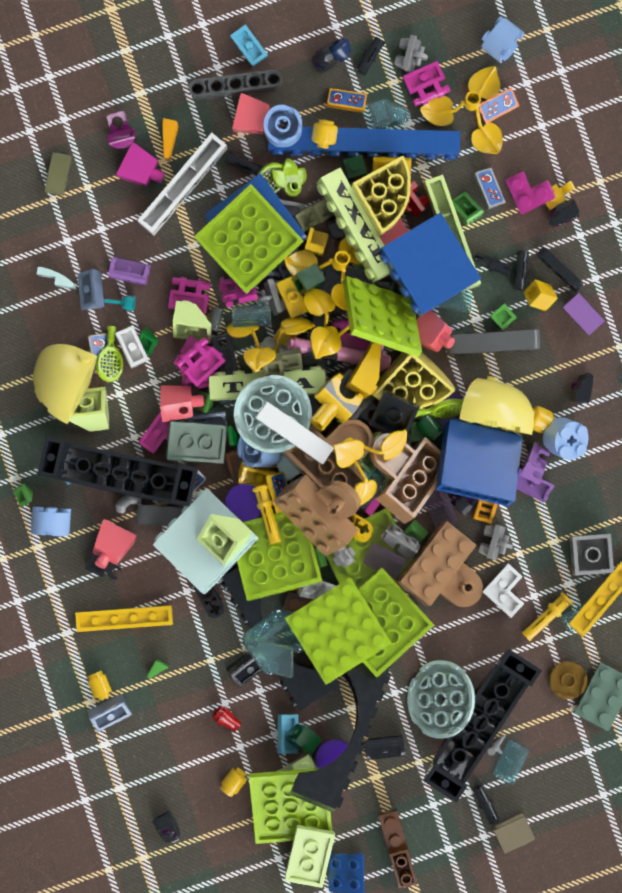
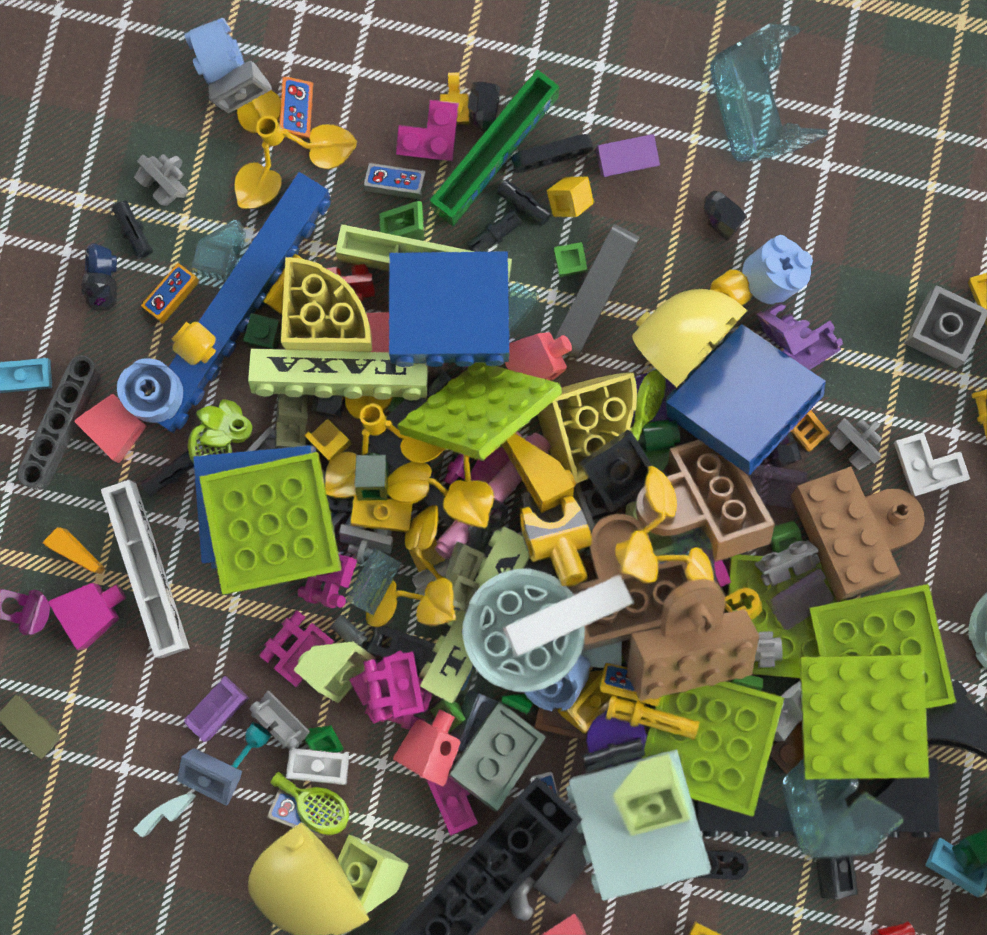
camera: 60 degrees left, 5 degrees down
(143, 314) = (284, 724): none -> light grey hinge
(234, 504) = (613, 754): none -> black pin
(424, 78) = (203, 178): dark pink plate -> none
(488, 66) = (238, 87): none -> light grey slope
(542, 234) = (494, 148): none -> green brick

